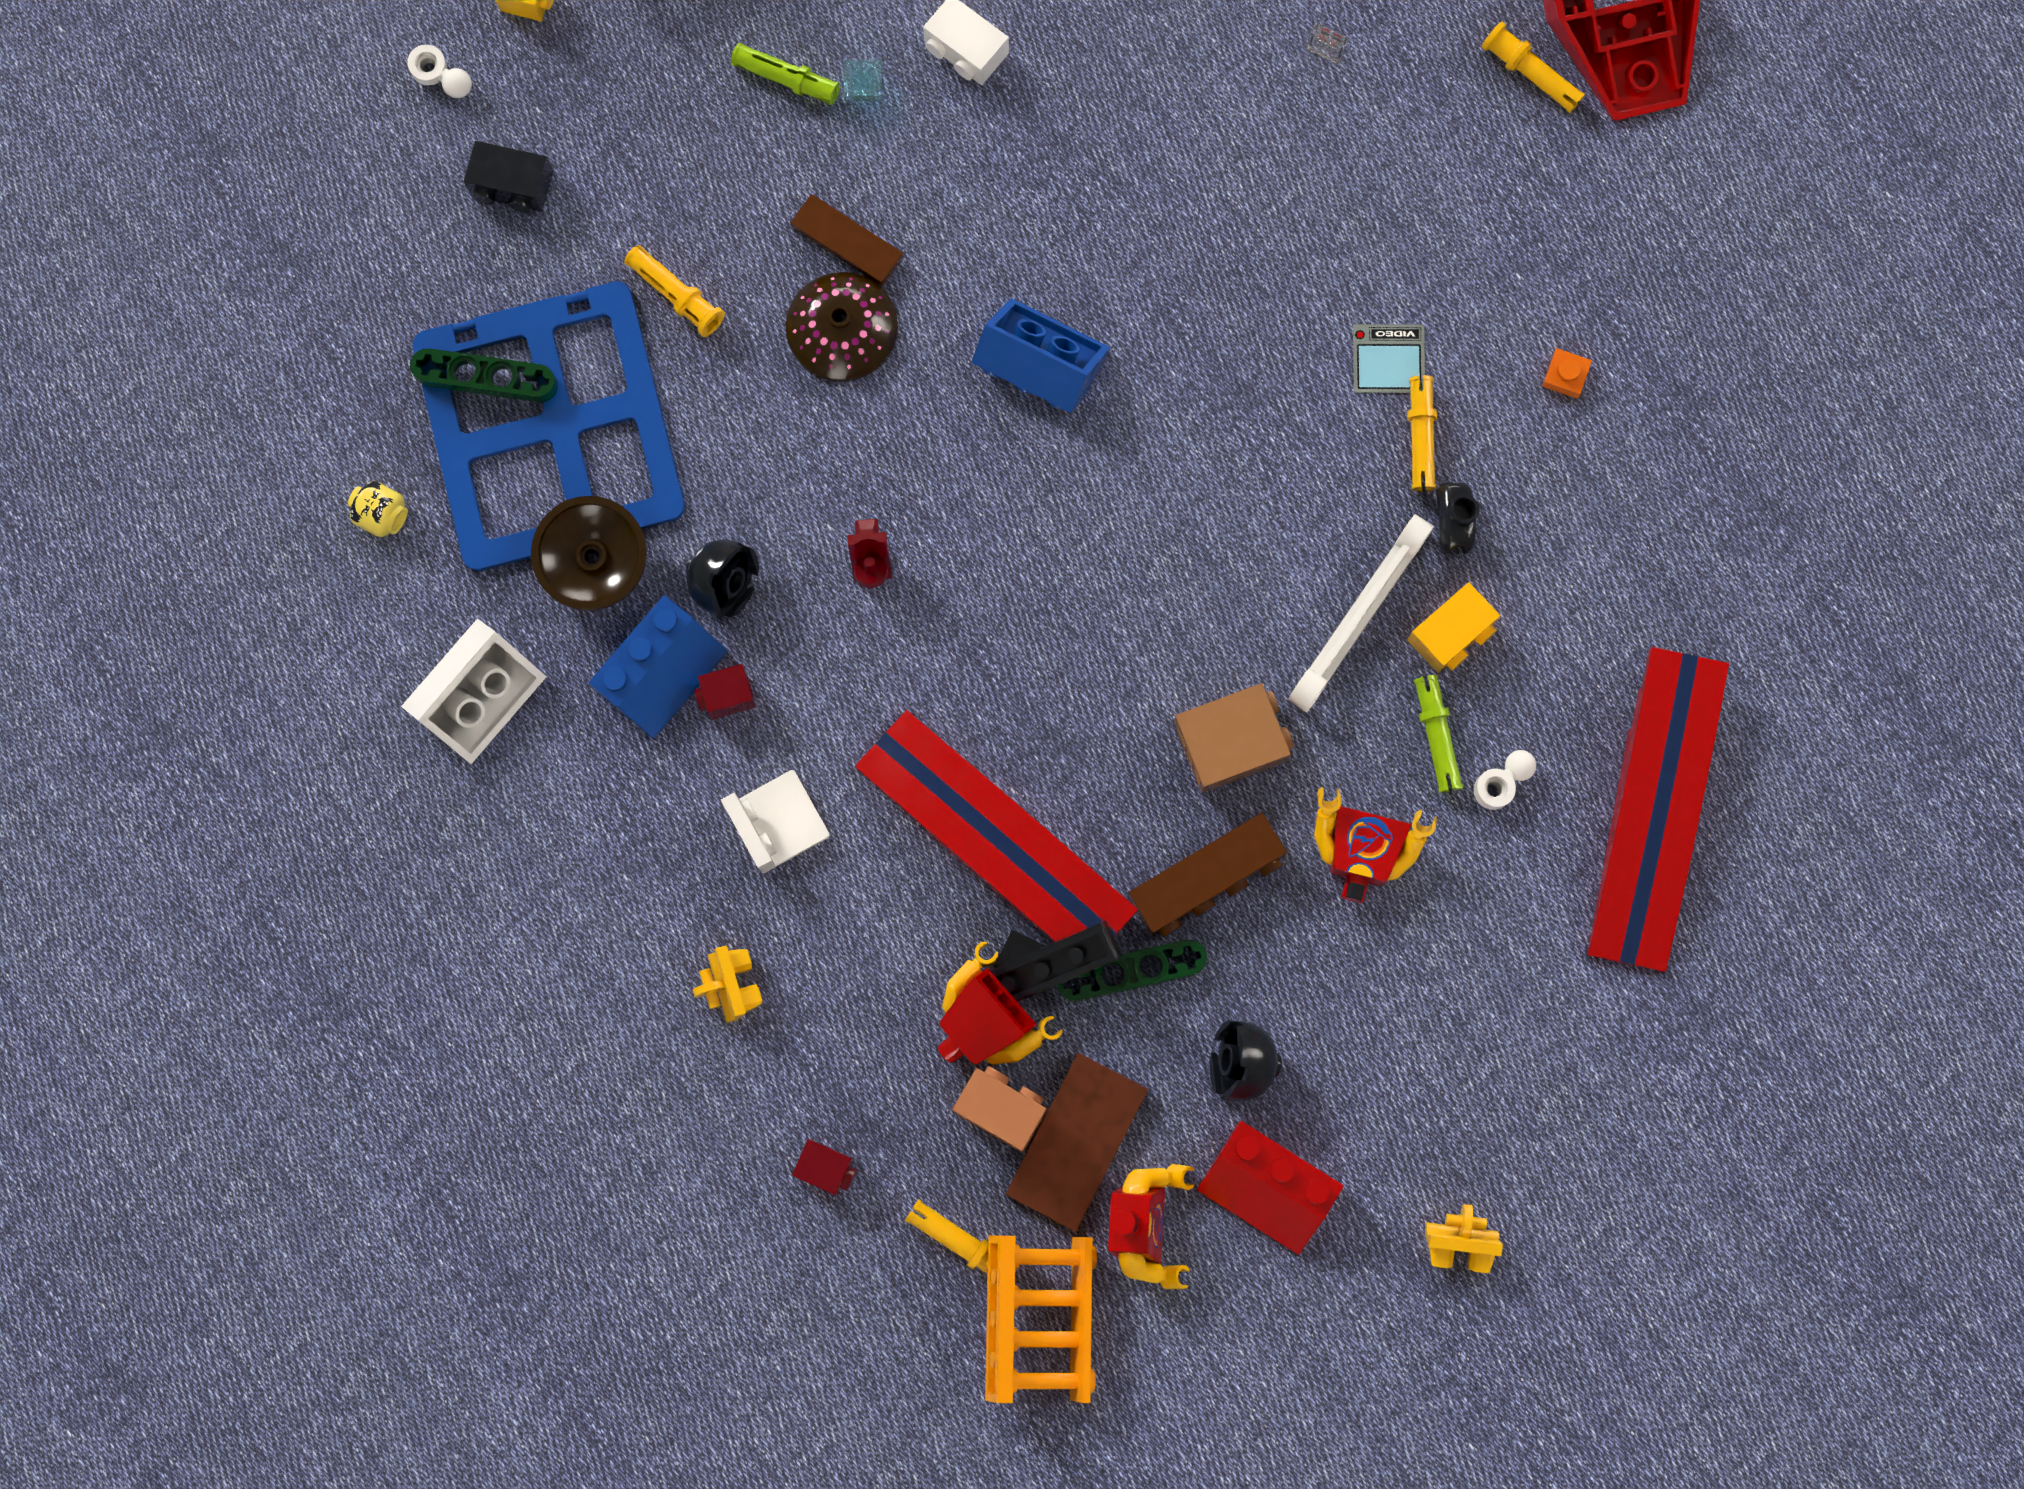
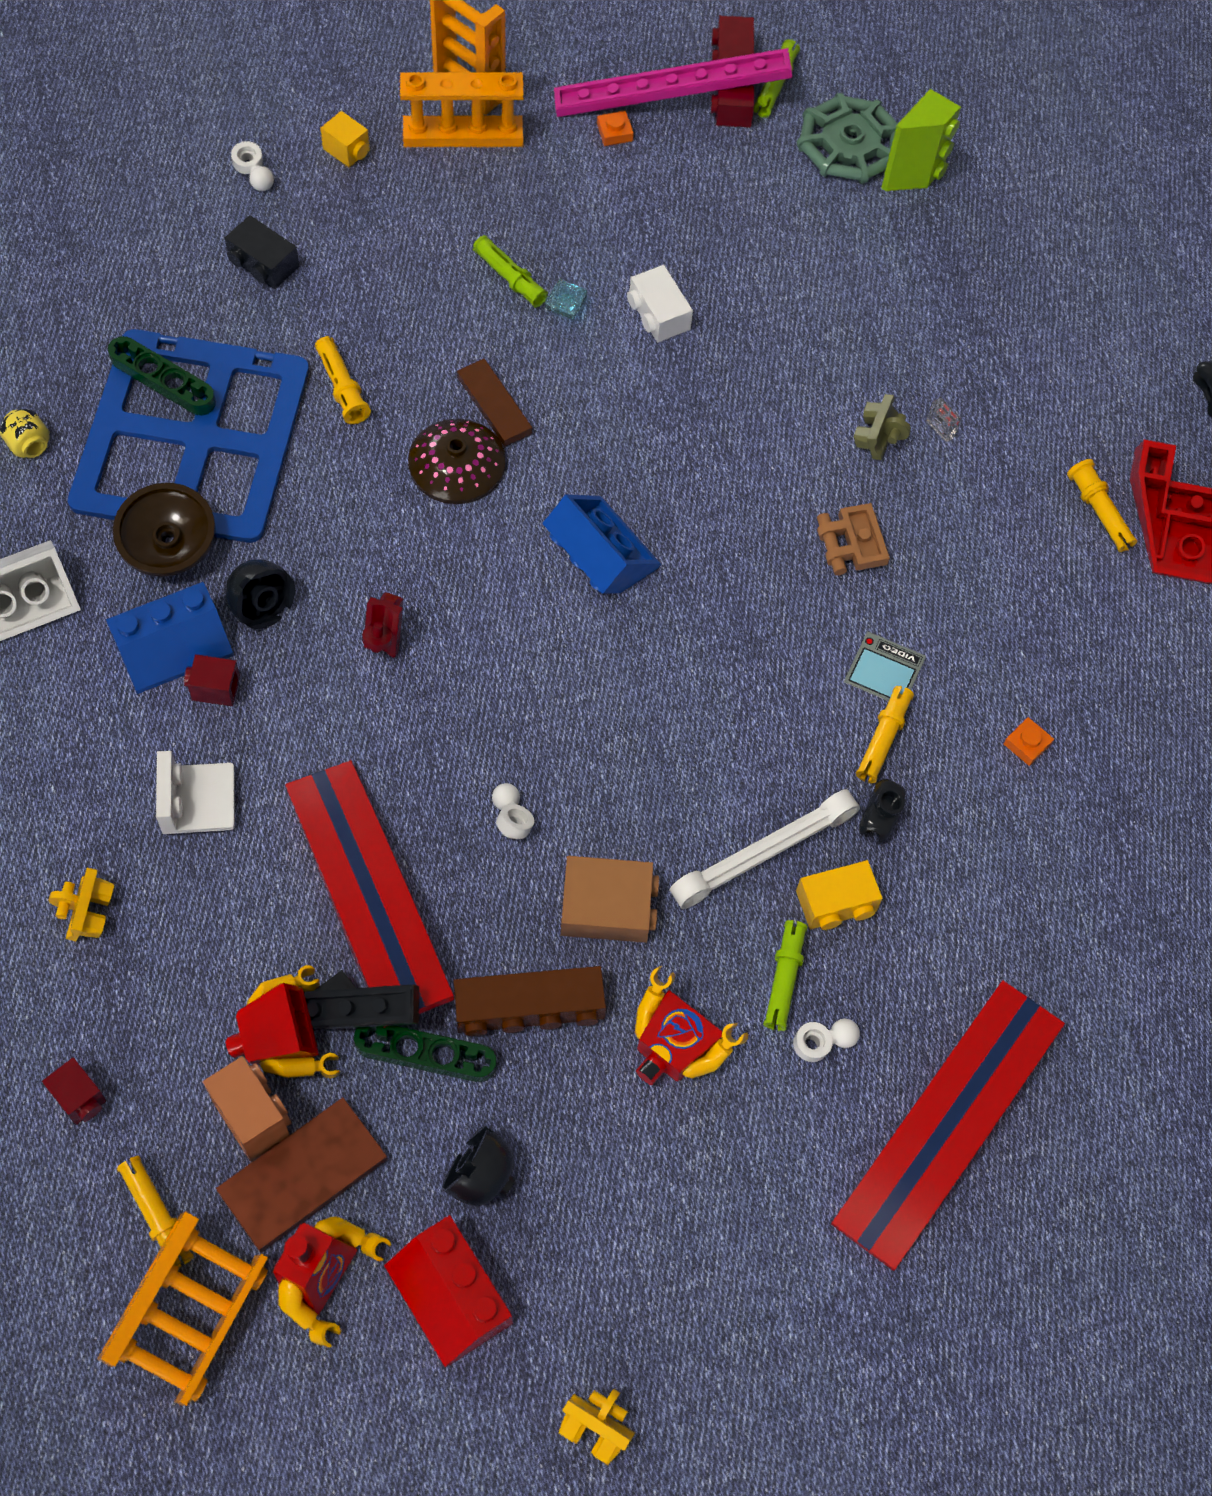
camera: 15 degrees right, 15 degrees down
(1101, 697) = (513, 819): none -> white plate
(1263, 67) = (886, 428): none -> olive hips
(1303, 221) = (862, 535): none -> medium nougat plate

